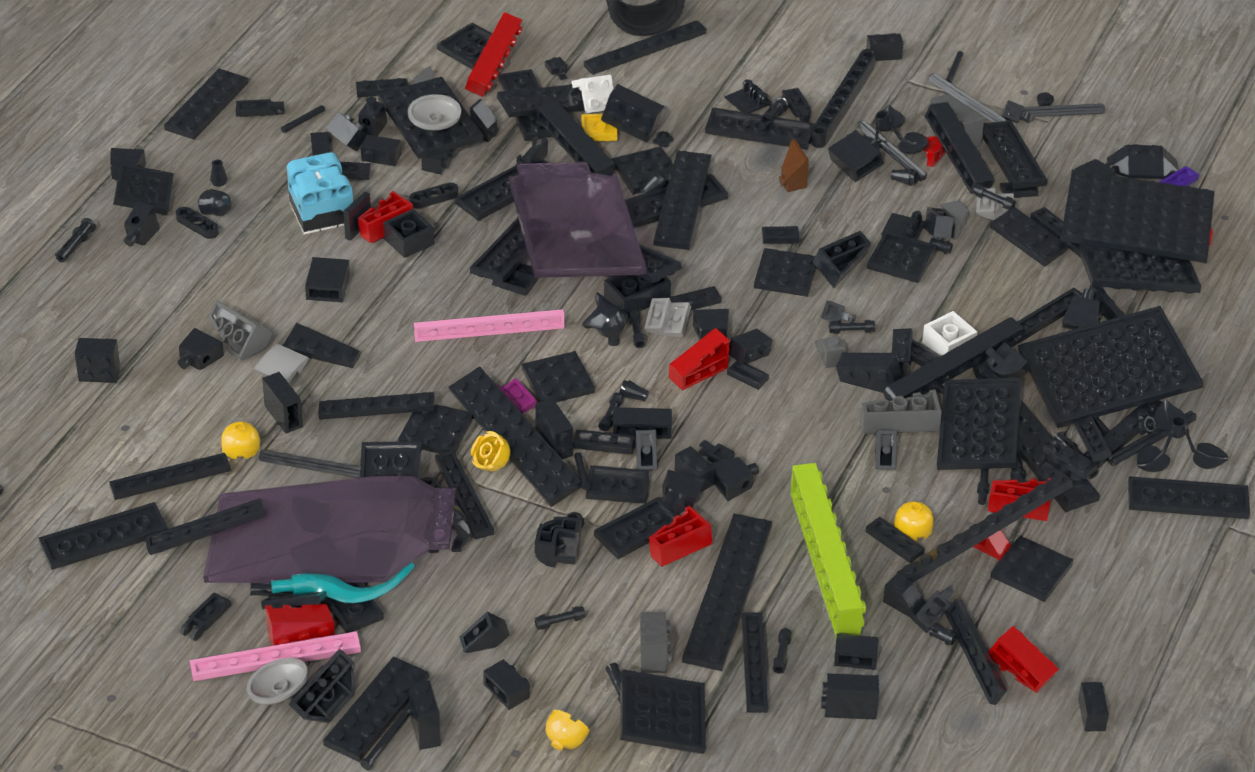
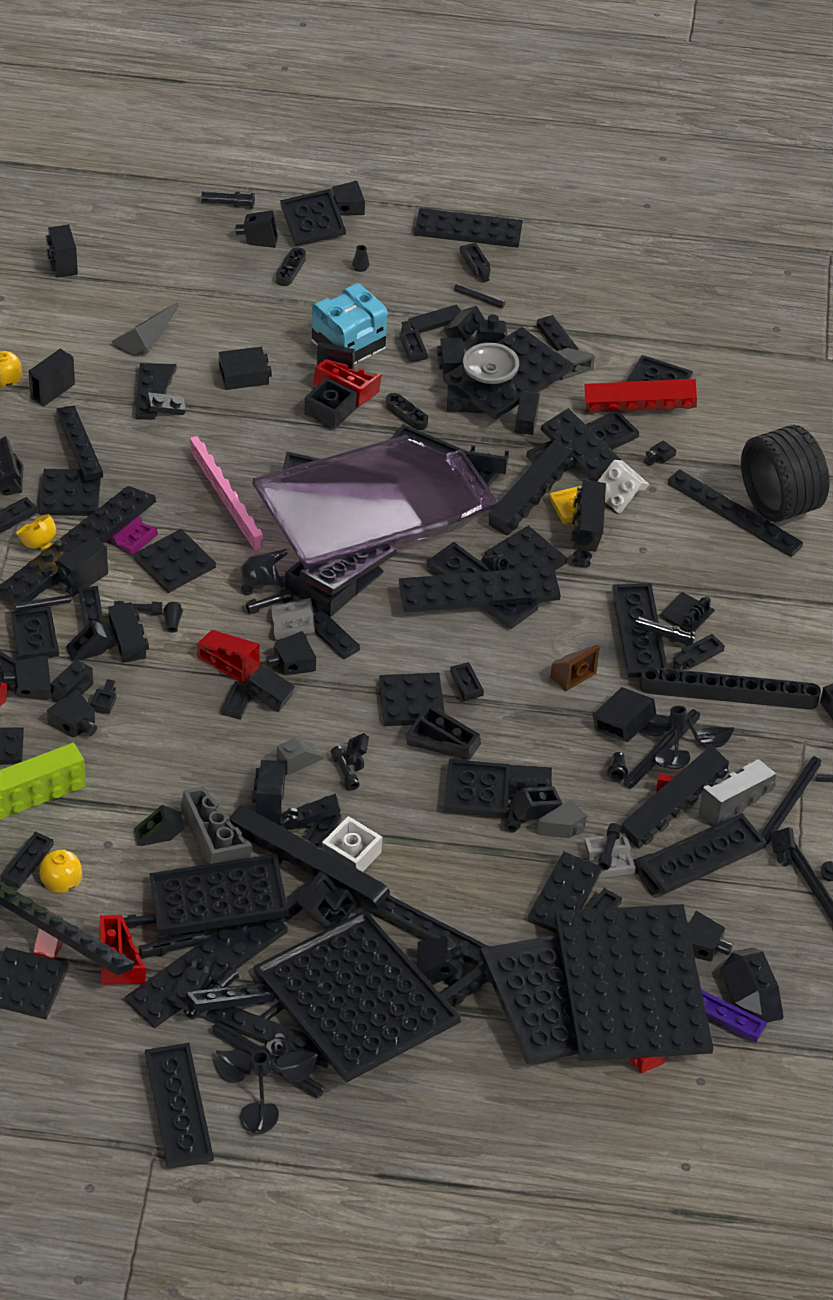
camera: 70 degrees right, 5 degrees up
(199, 350) = (110, 311): black torso -> none
(214, 202) = (321, 268): black hair -> none
(283, 360) = (115, 368): light grey slope -> none
(351, 338) = (166, 403): none -> black plate

